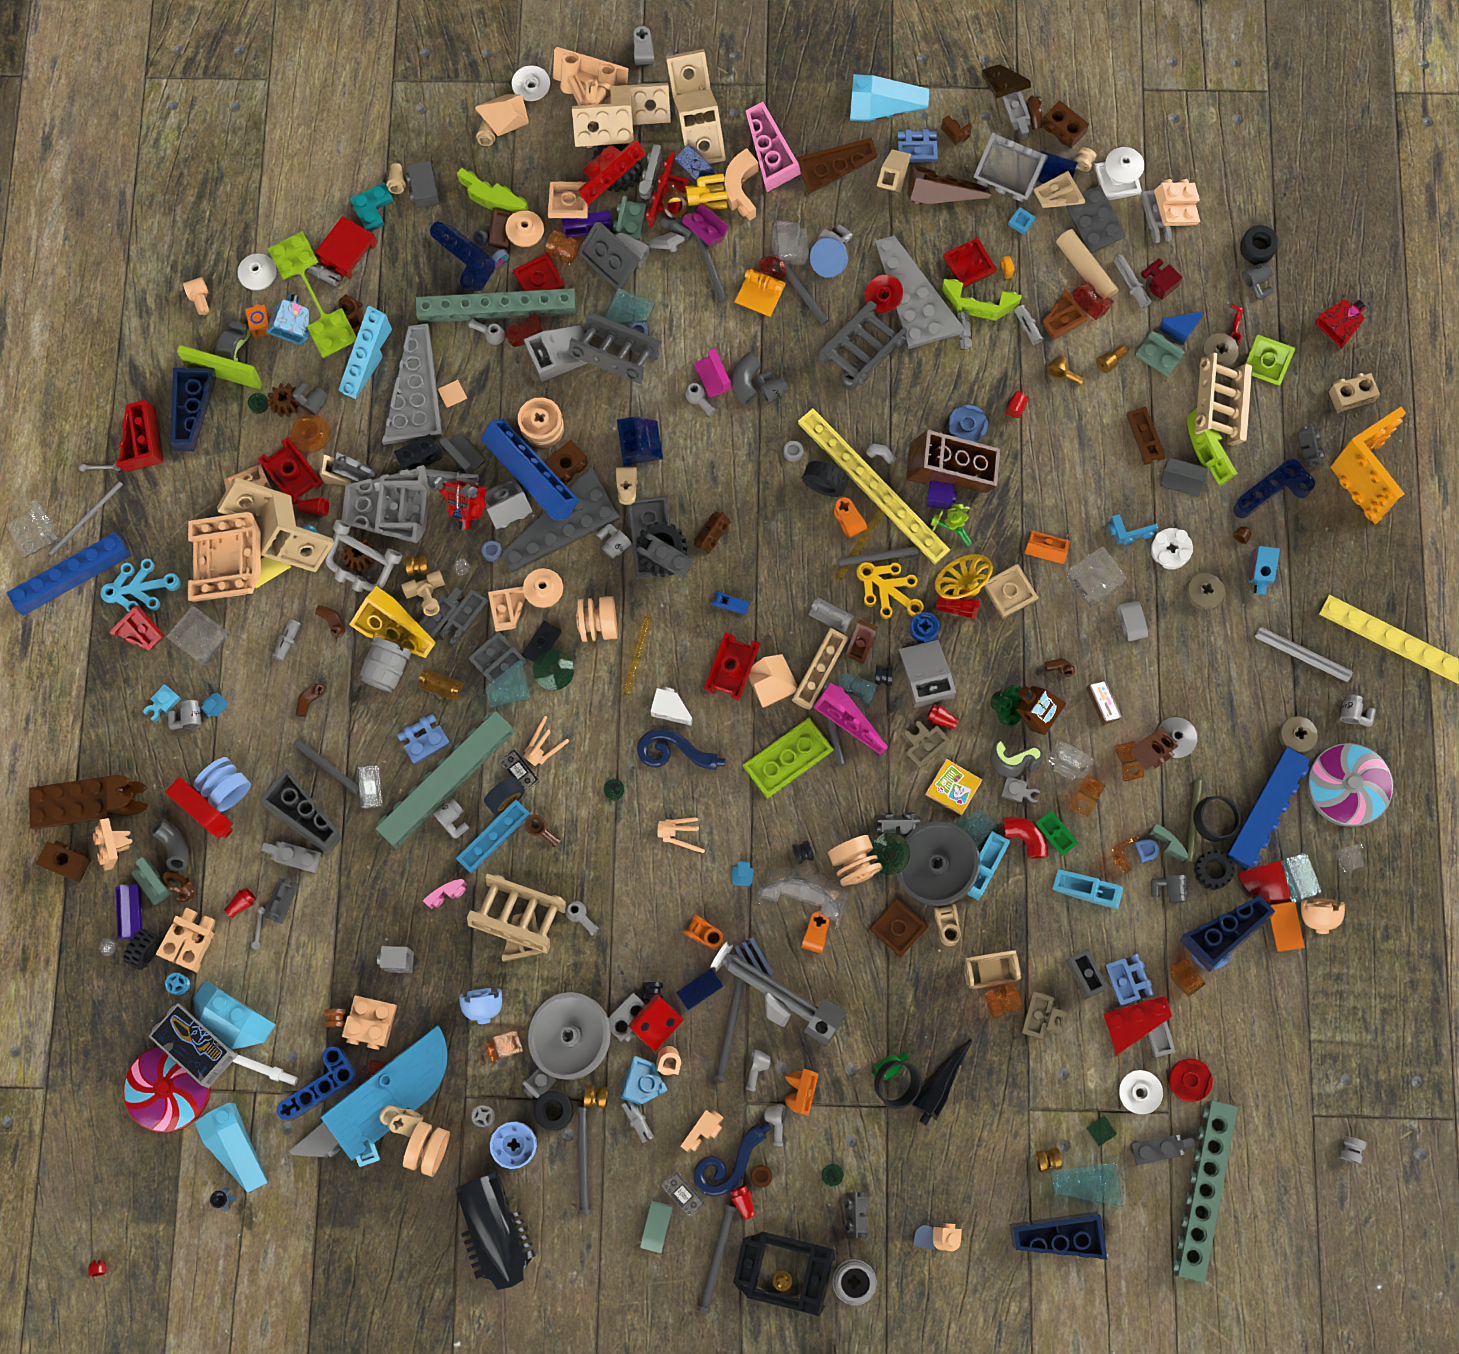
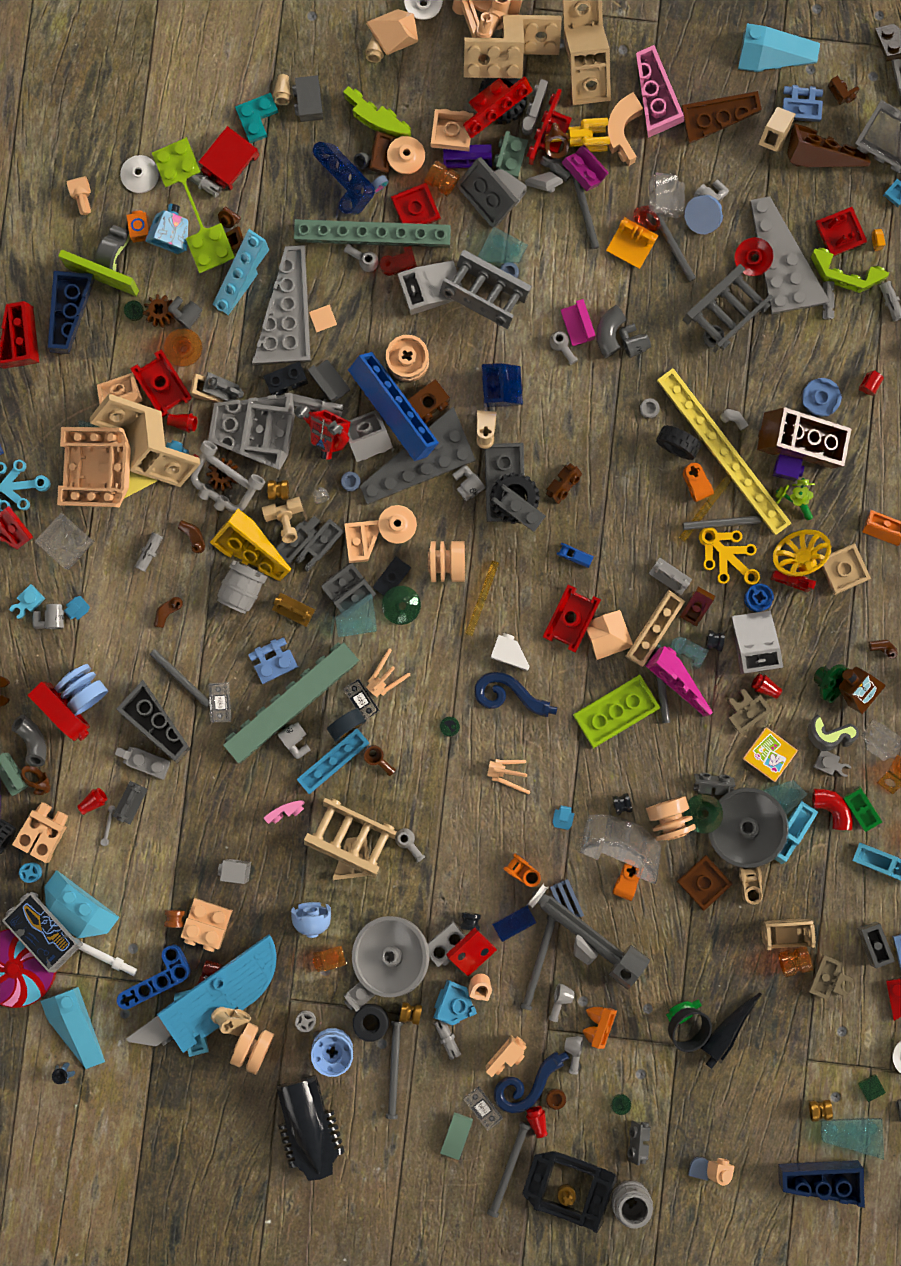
camera: 10 degrees right, 10 degrees up
(694, 163) = (579, 103): clear blue plate -> none

